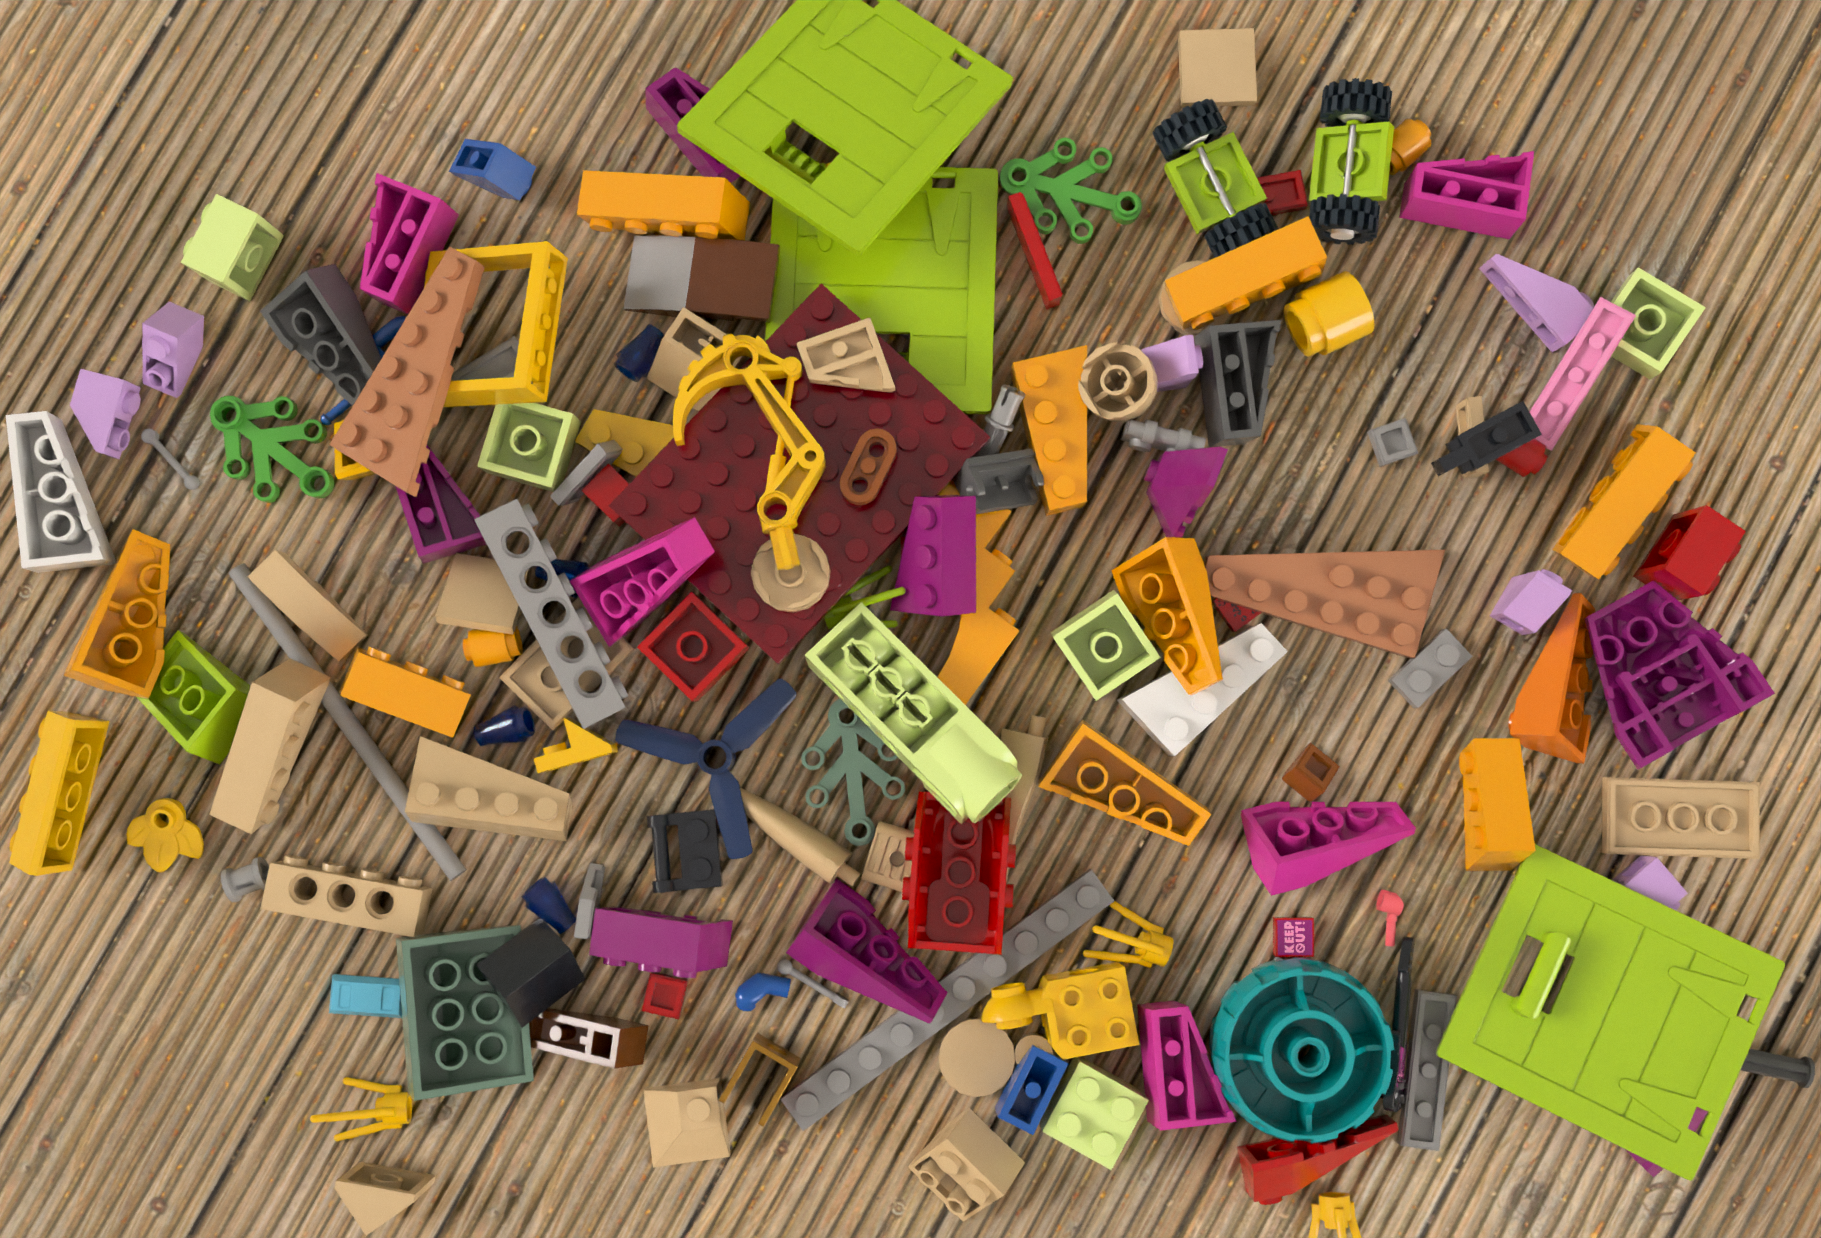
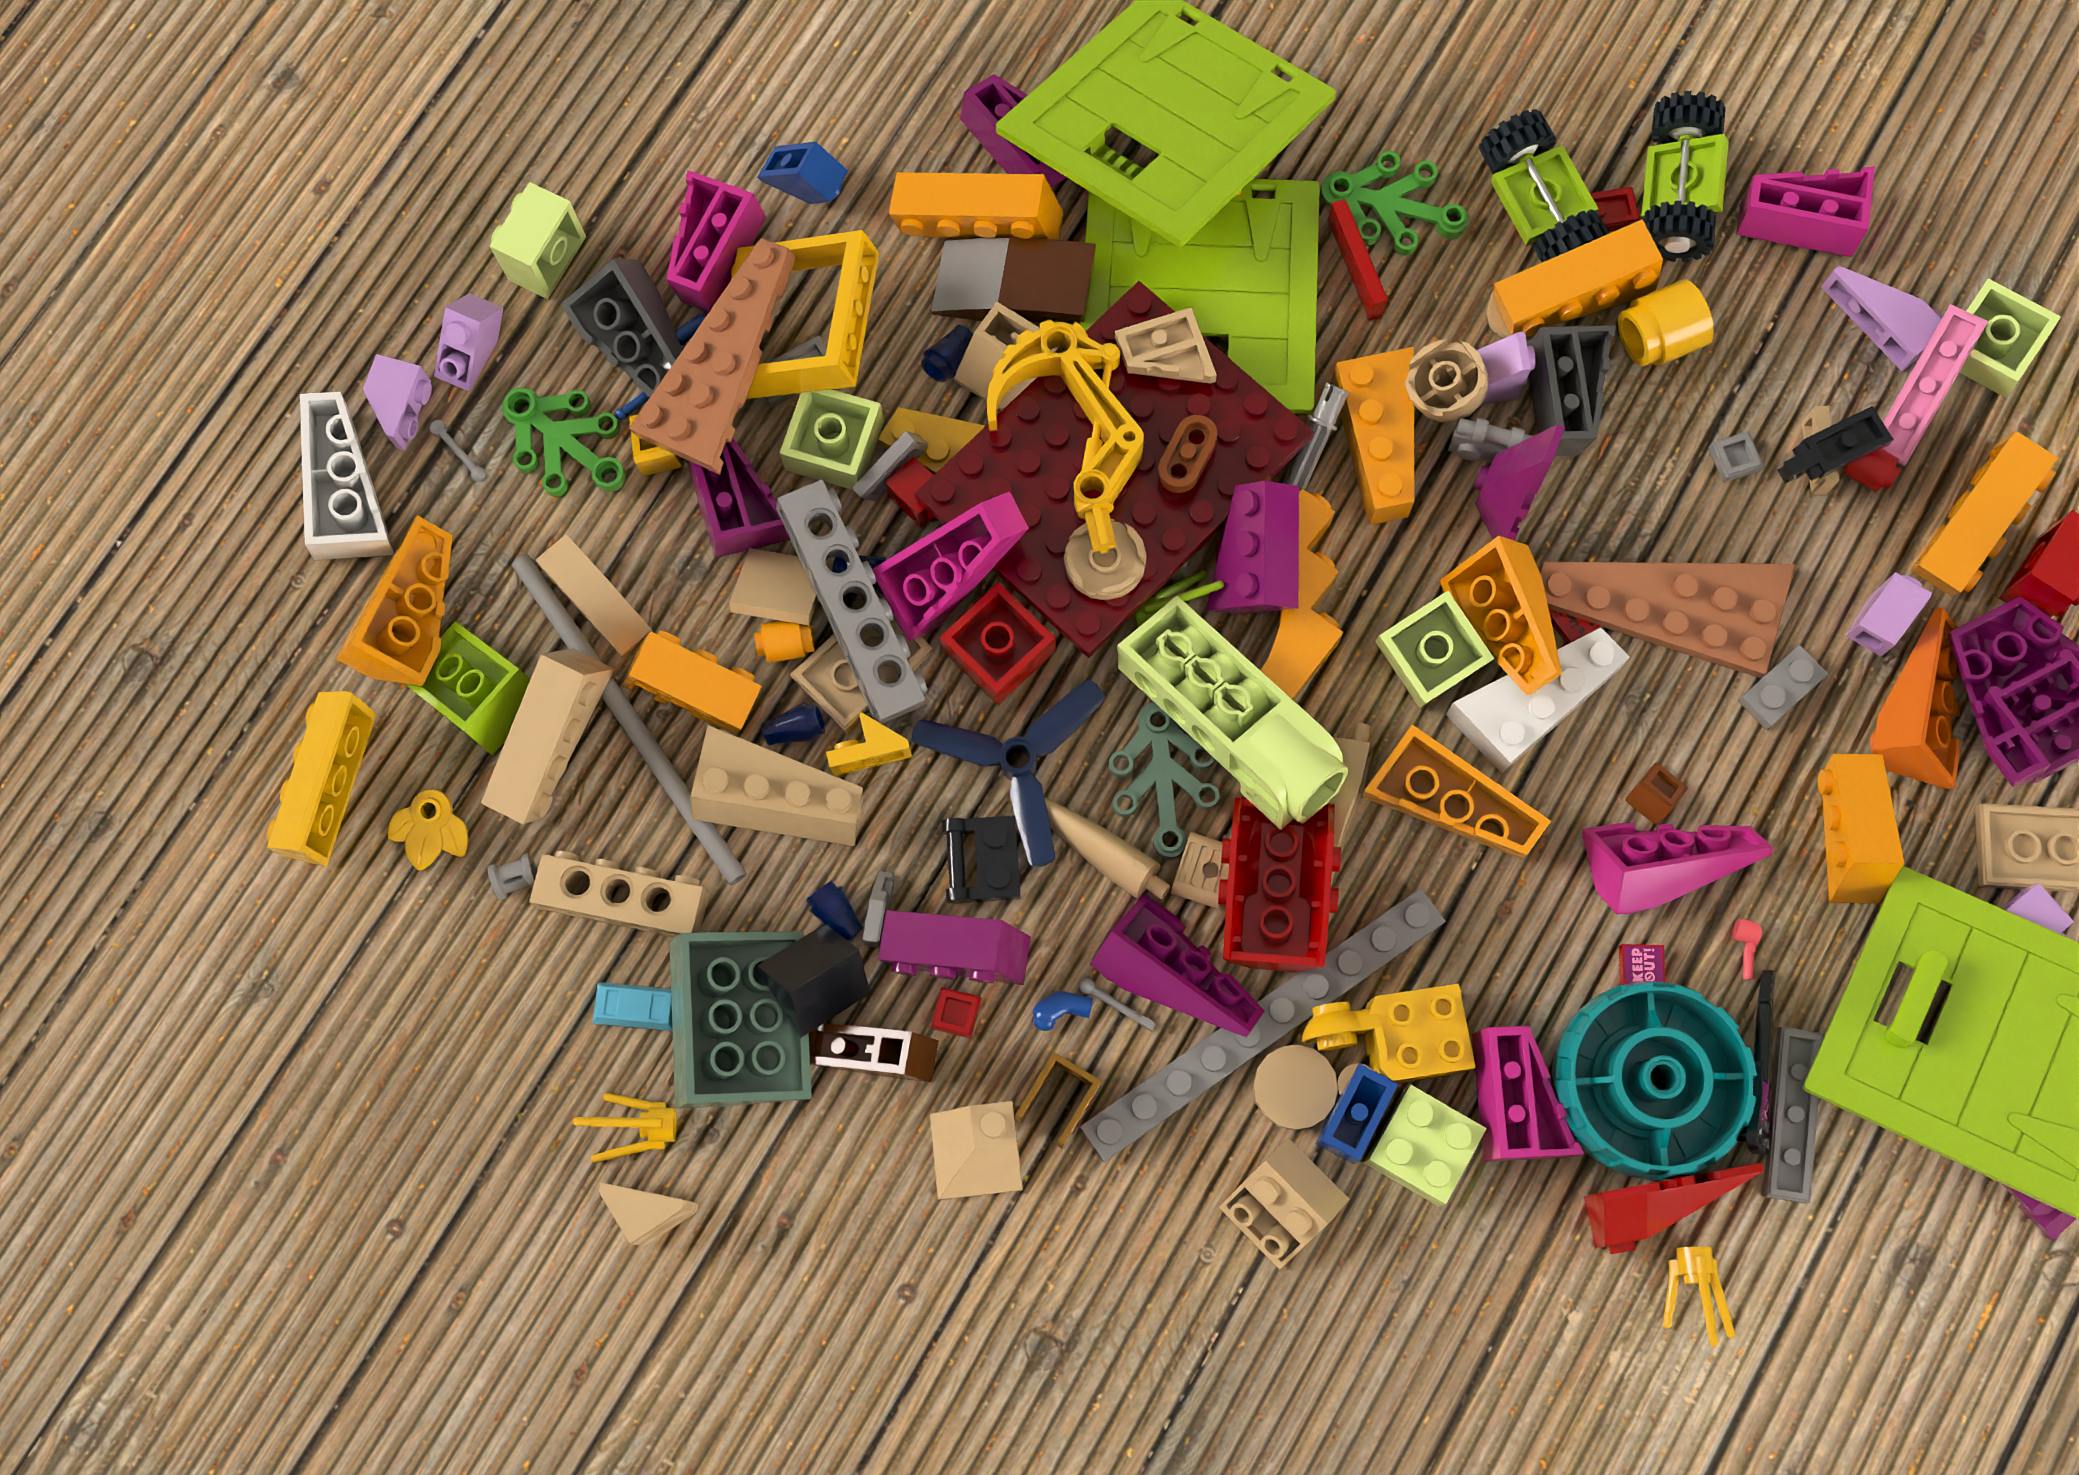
camera: 10 degrees right, 10 degrees down
(1000, 480) = (1324, 477): dark grey hinge -> none
(1151, 946) = (1485, 968): yellow plant -> none
(1217, 66) = (1546, 83): tan tile -> none
(1408, 144) = (1744, 161): light orange brick -> none

